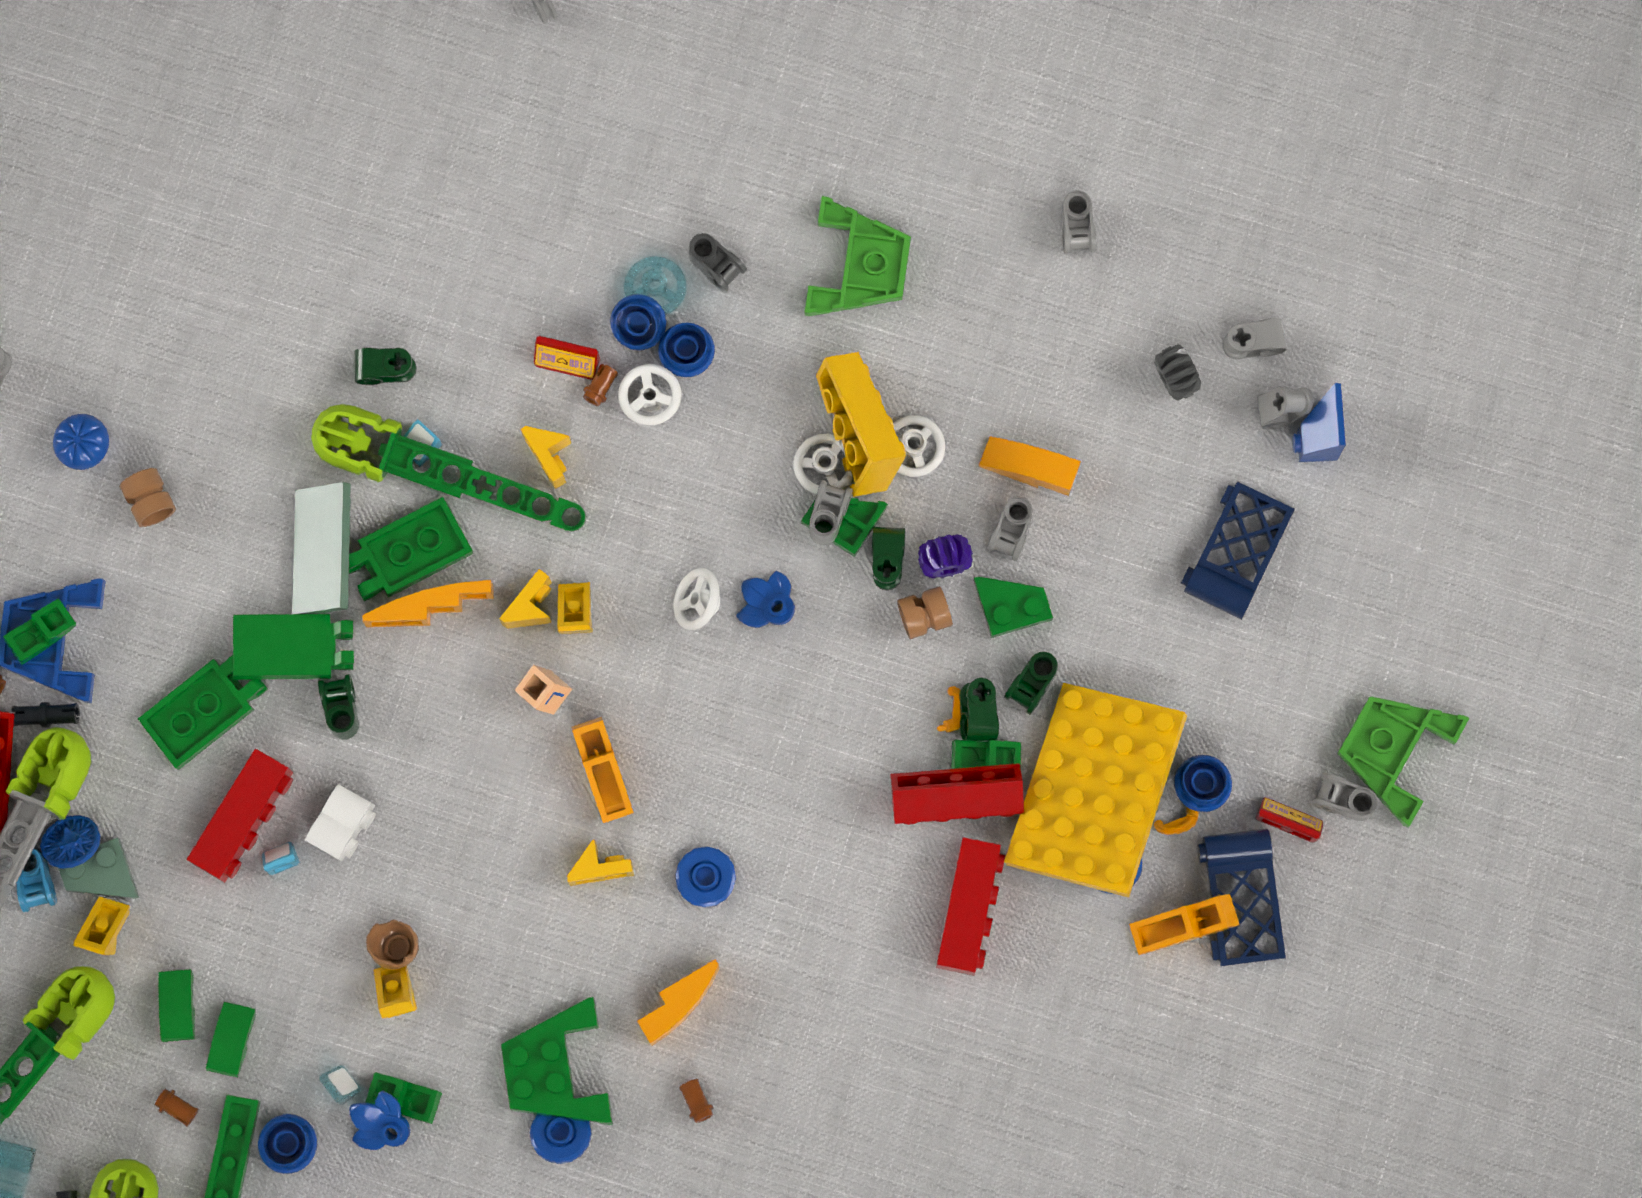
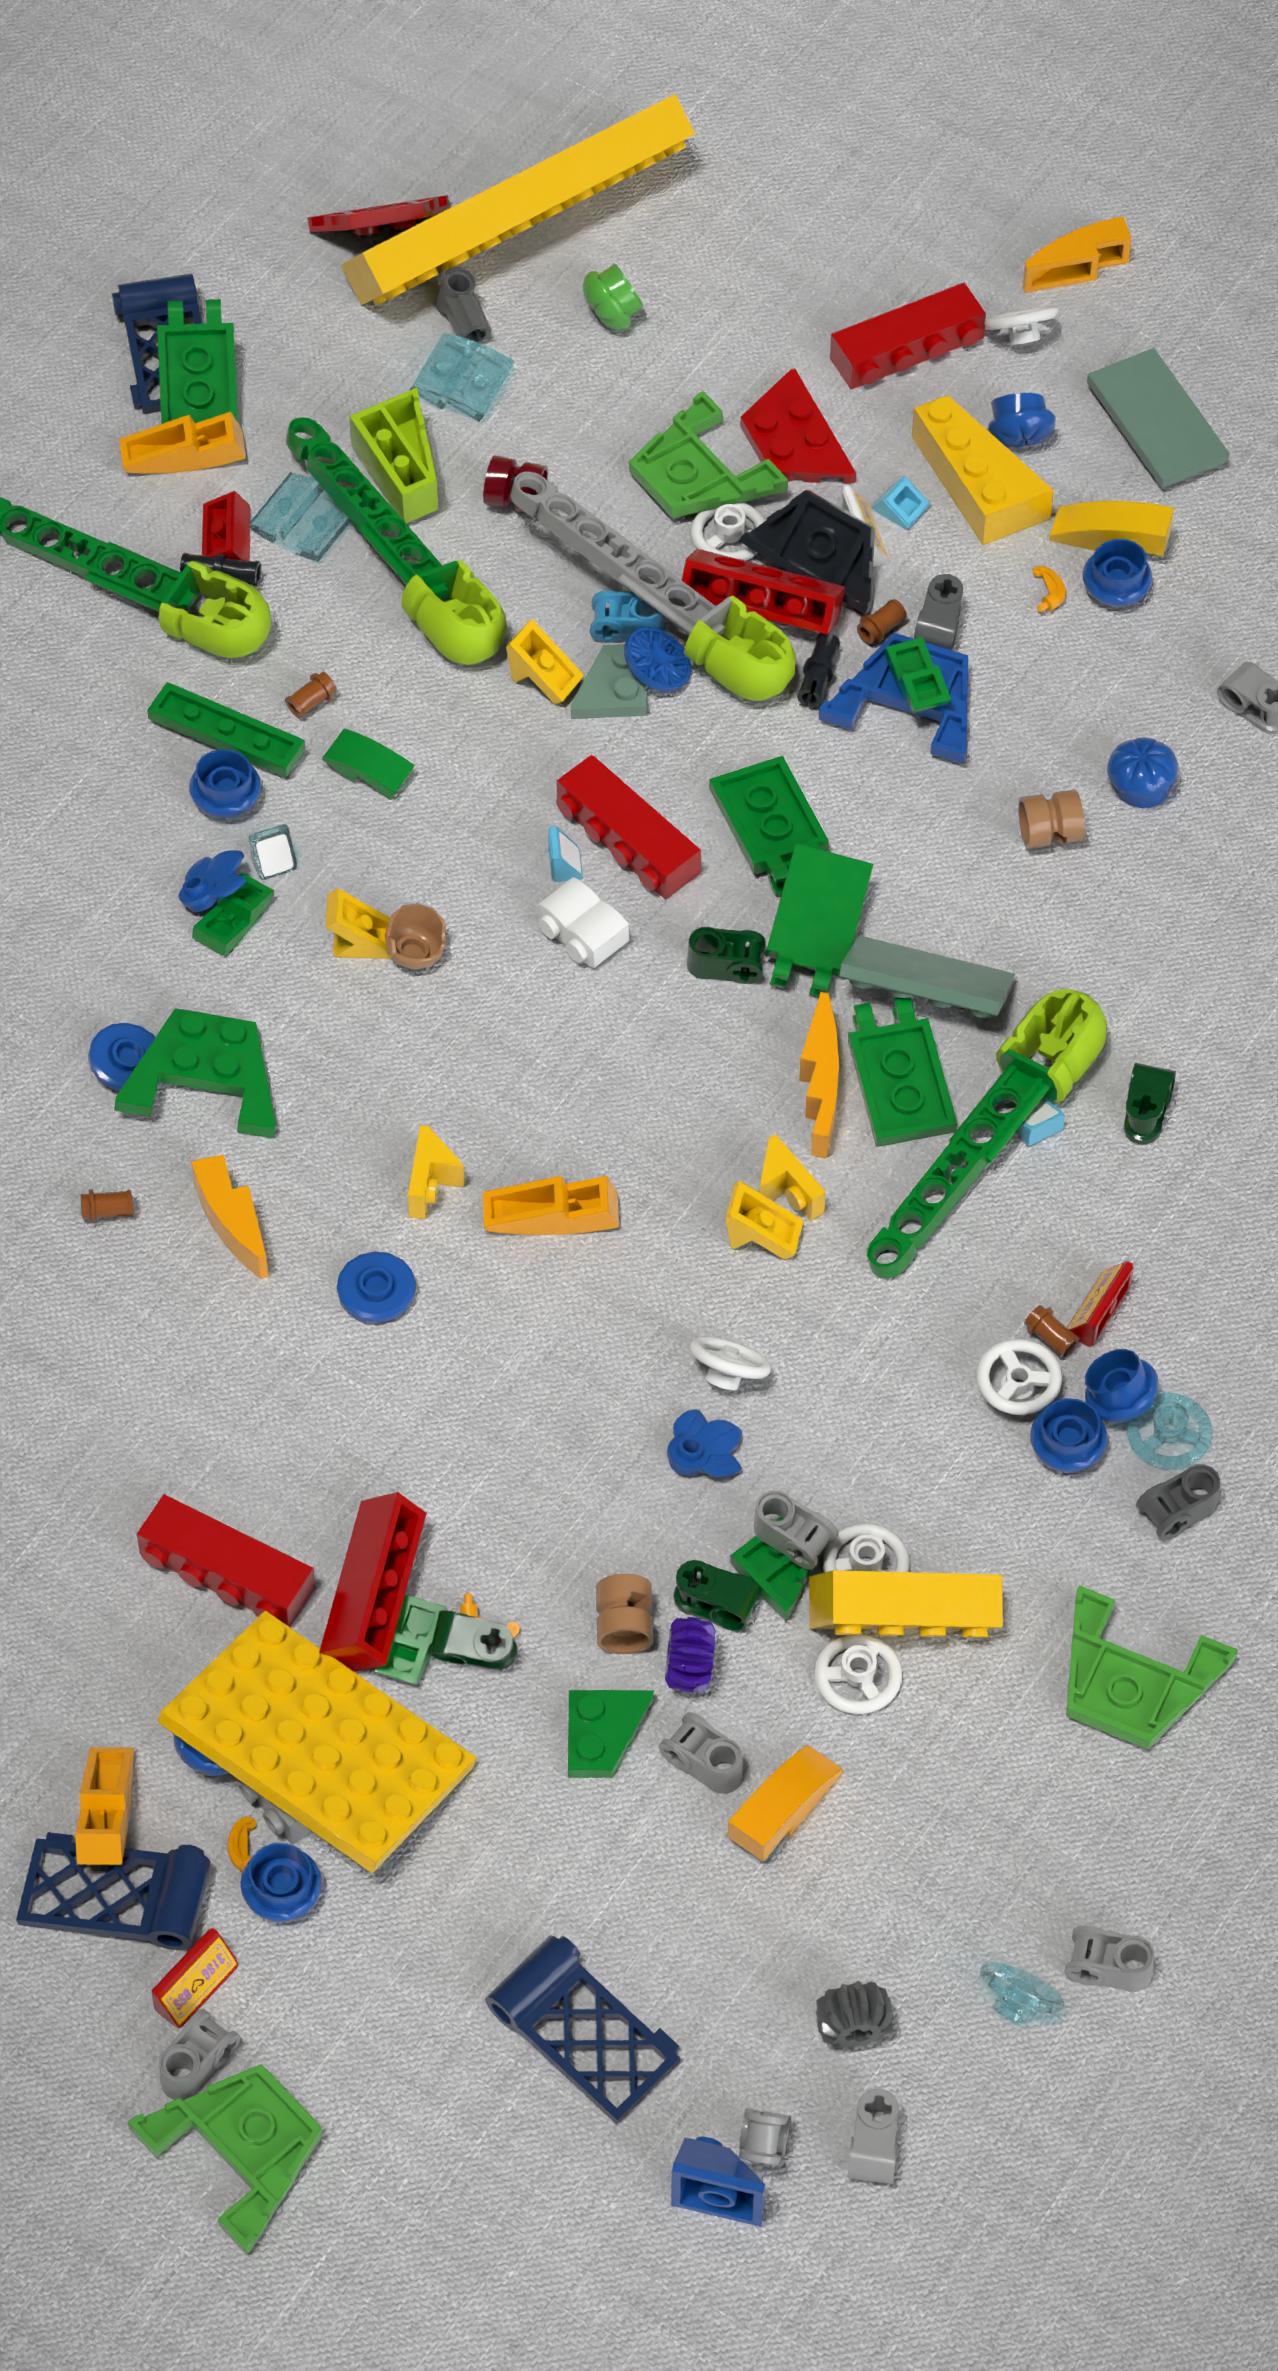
camera: 105 degrees right, 20 degrees down
(176, 1005) = (423, 716): green slope -> none
(543, 689) = (670, 1161): light nougat brick -> none
(544, 445) = (983, 1242): yellow slope -> none
(1032, 683) = (486, 1714): dark green piece -> none
(1127, 275) = (1019, 1992): none -> clear light blue piece

